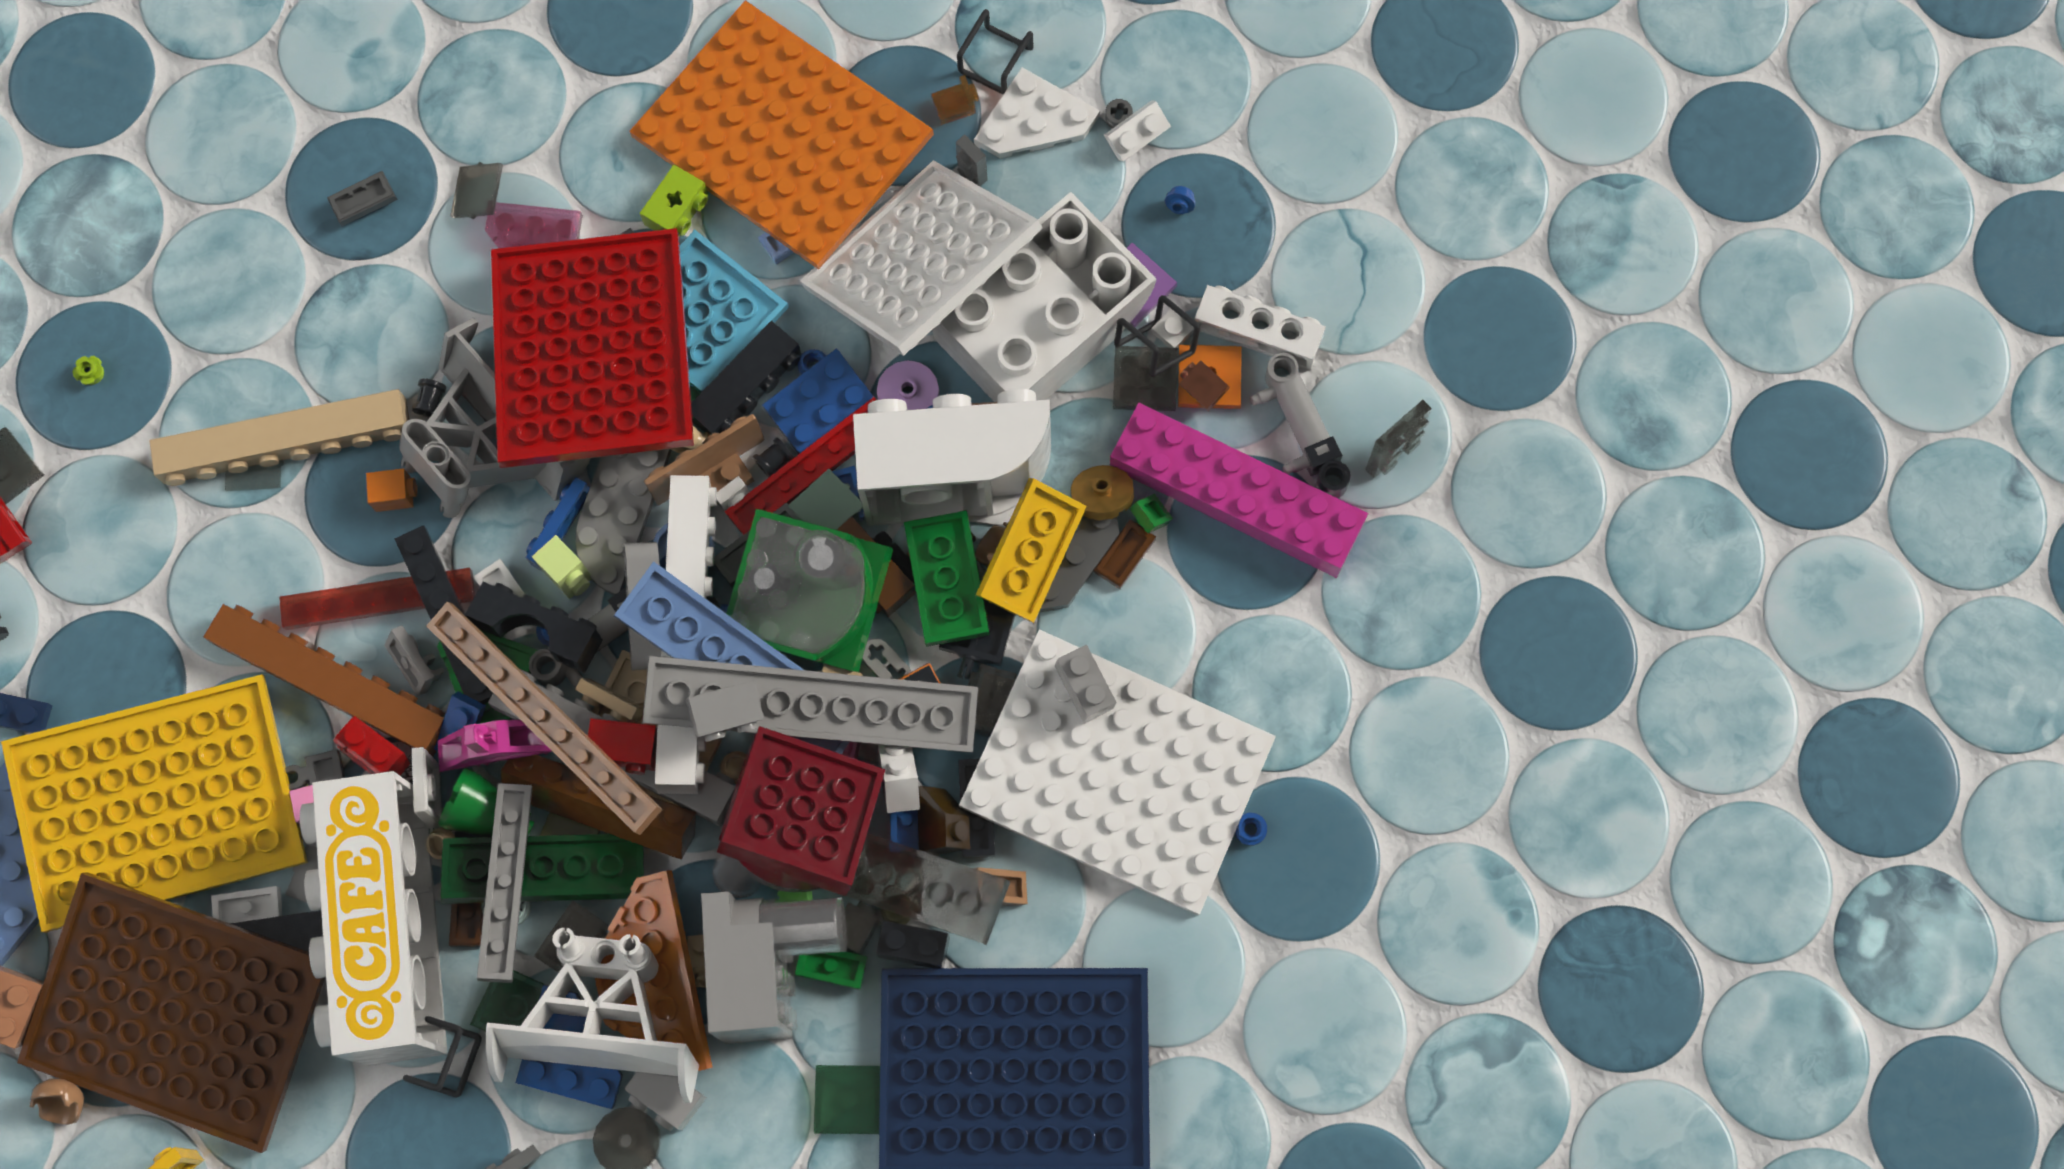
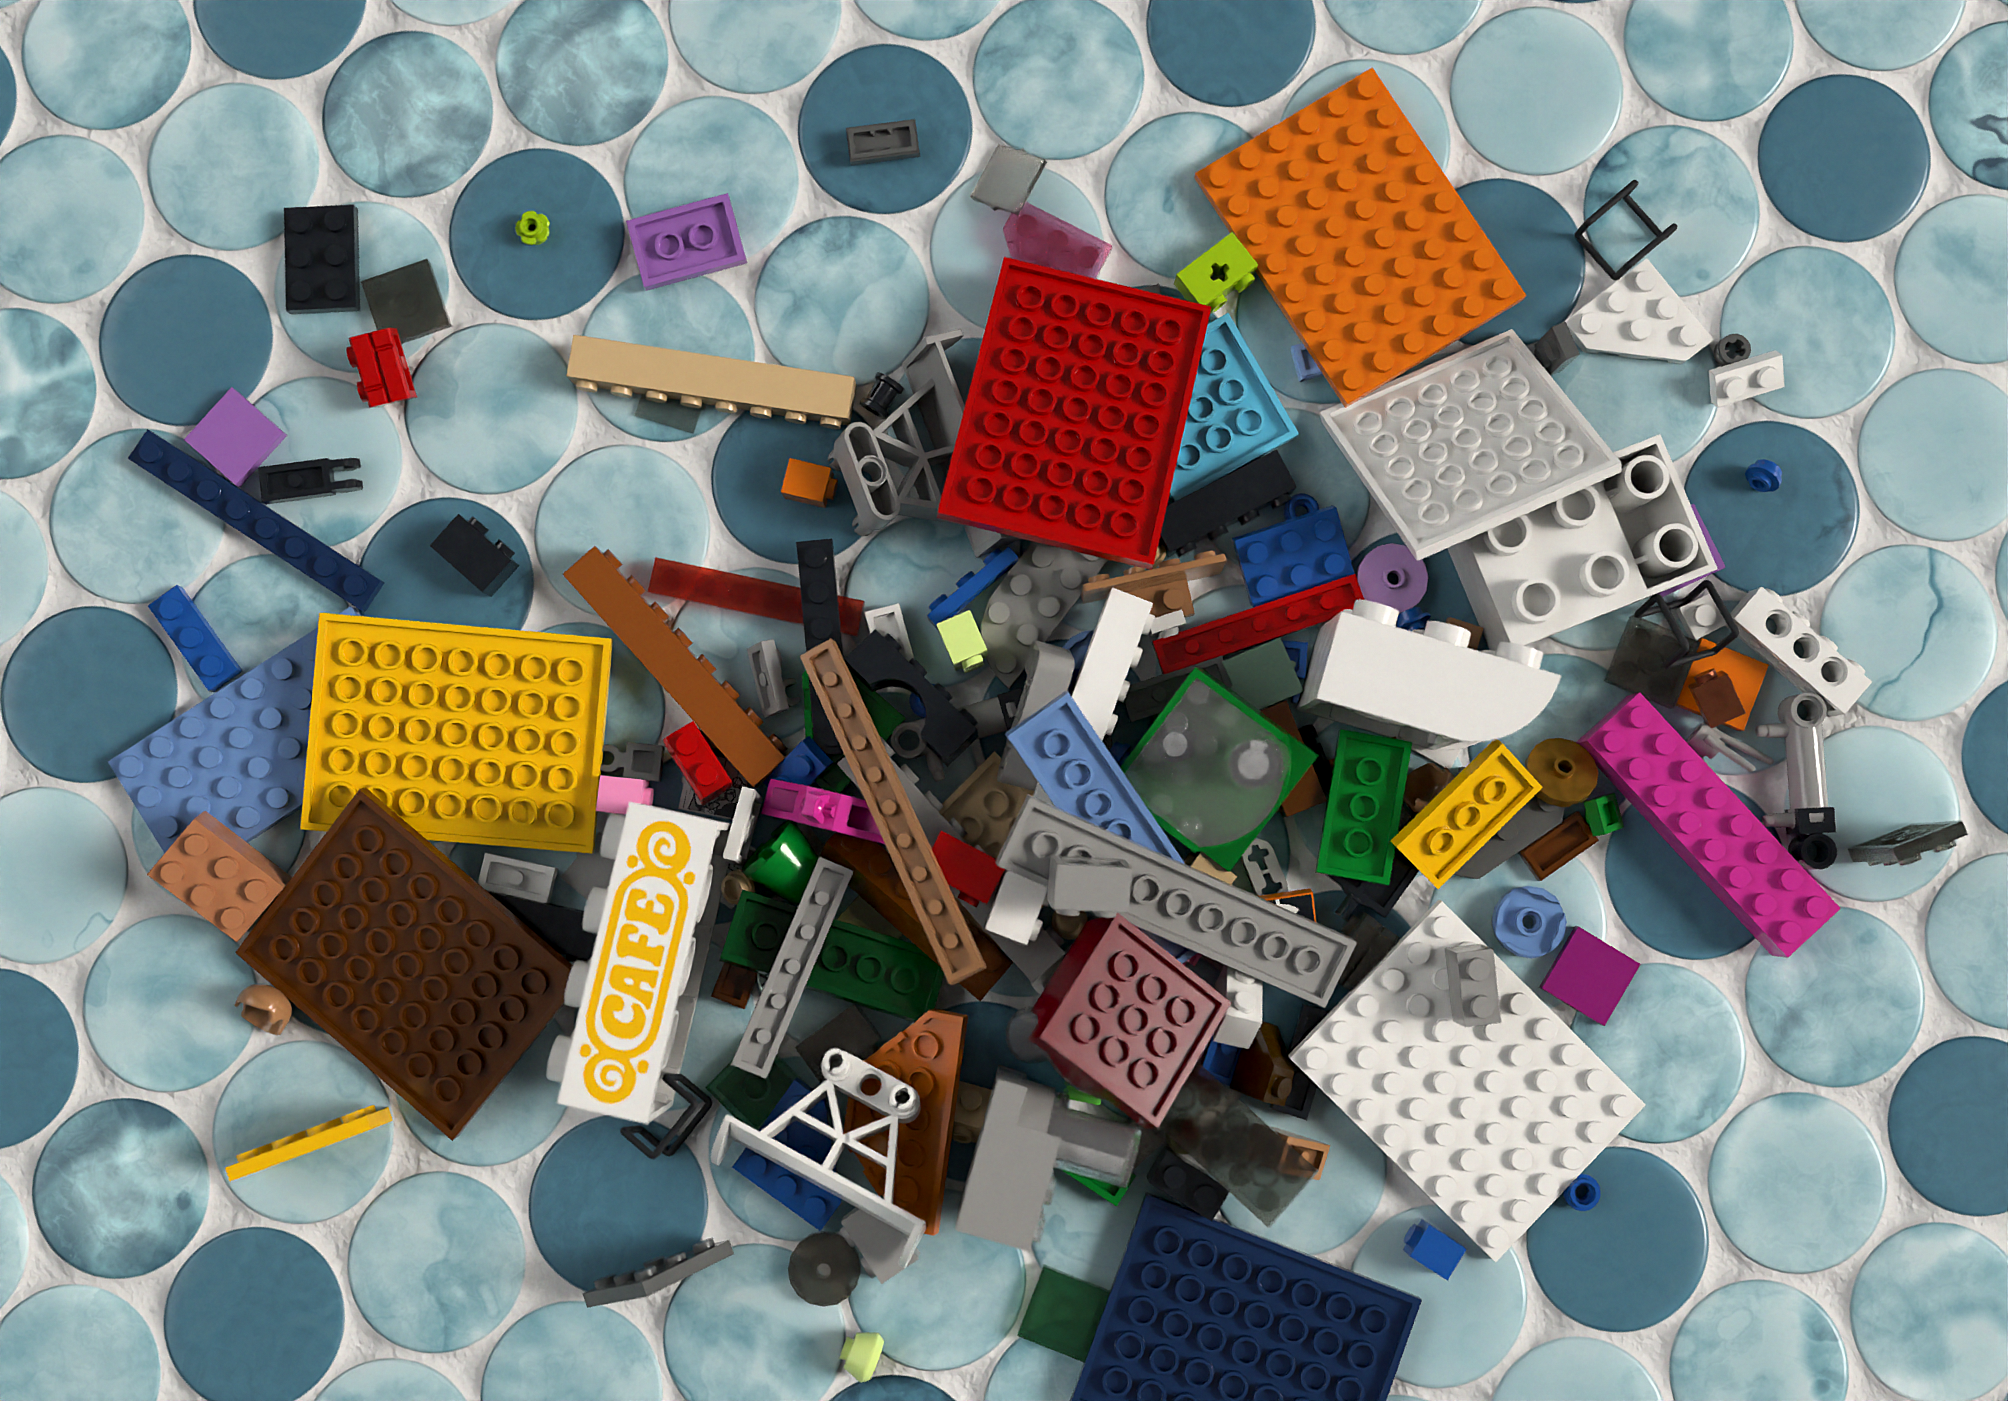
camera: 20 degrees right, 10 degrees up
(123, 651) = (475, 555): none -> black brick
(222, 334) = (686, 242): none -> medium lavender plate
(597, 694) = (973, 816): tan plate -> none
(773, 457) = (1224, 600): black bush -> none
(955, 101) = (1560, 269): clear orange bracket -> none
(1124, 607) = (1547, 918): none -> medium blue plate
(1141, 921) = (1433, 1248): none -> blue brick
(1190, 649) = (1589, 975): none -> magenta tile
(1215, 423) = (1710, 741): none -> light grey plant

